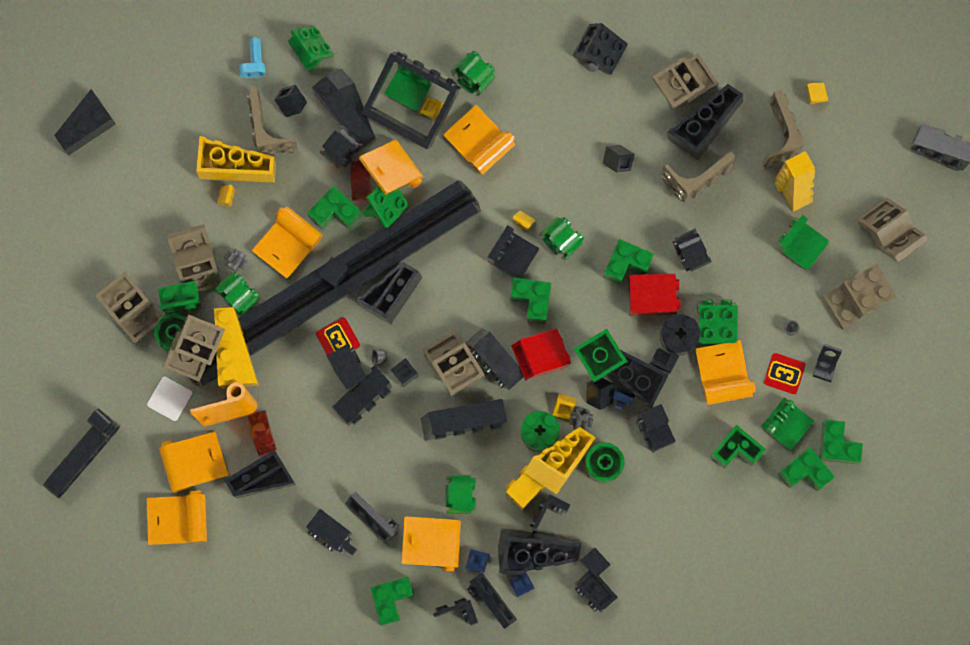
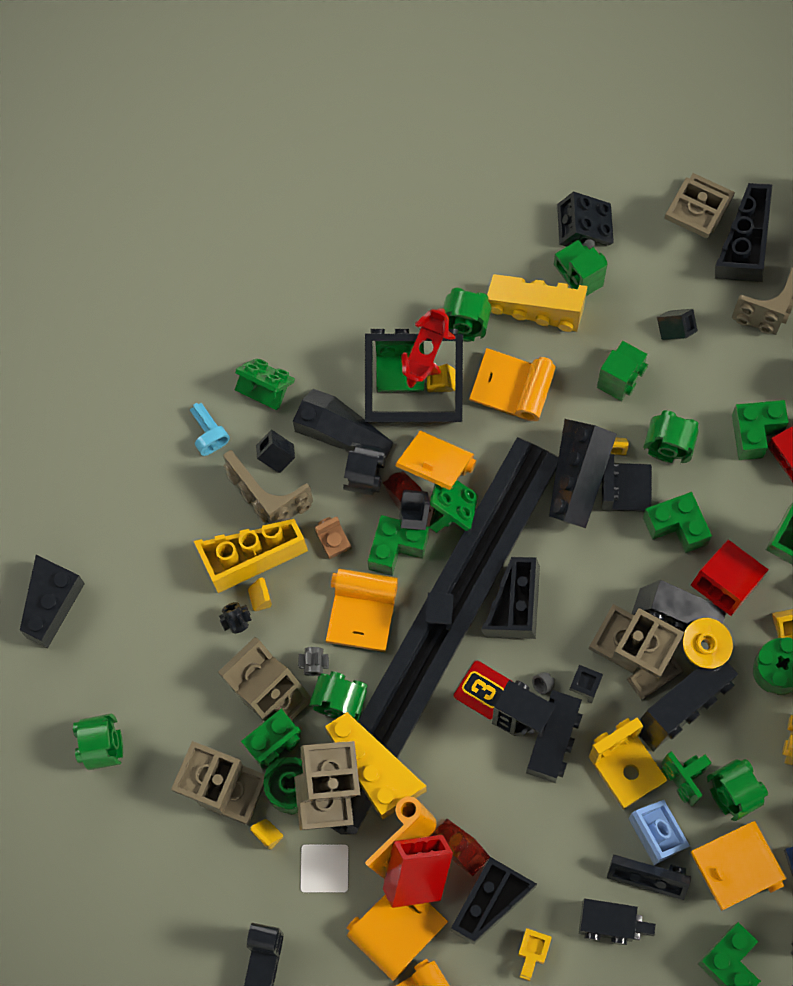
camera: 25 degrees left, 10 degrees down
(67, 238) = (98, 742): none -> green brick
(144, 356) = (267, 833): none -> yellow slope
(200, 202) = (235, 617): none -> black gear
(222, 433) = (417, 871): none -> red brick
(271, 522) = (533, 949): none -> yellow plate
(296, 182) = (332, 537): none -> medium nougat bracket
(356, 194) = (414, 509): none -> black panel
(395, 493) = (658, 831): none -> light blue slope
(400, 428) = (623, 749): none -> yellow bracket
(415, 96) = (434, 327): none -> red piece
(438, 465) = (684, 775): none -> green bracket
(444, 396) = (646, 683): none -> dark tan tile
(484, 227) = (579, 471): none -> black wedge
(507, 390) = (715, 635): none -> yellow dish
(529, 90) = (537, 301): none -> yellow wedge
(558, 171) = (621, 371): none -> green brick
(575, 81) = (581, 266): none -> green brick

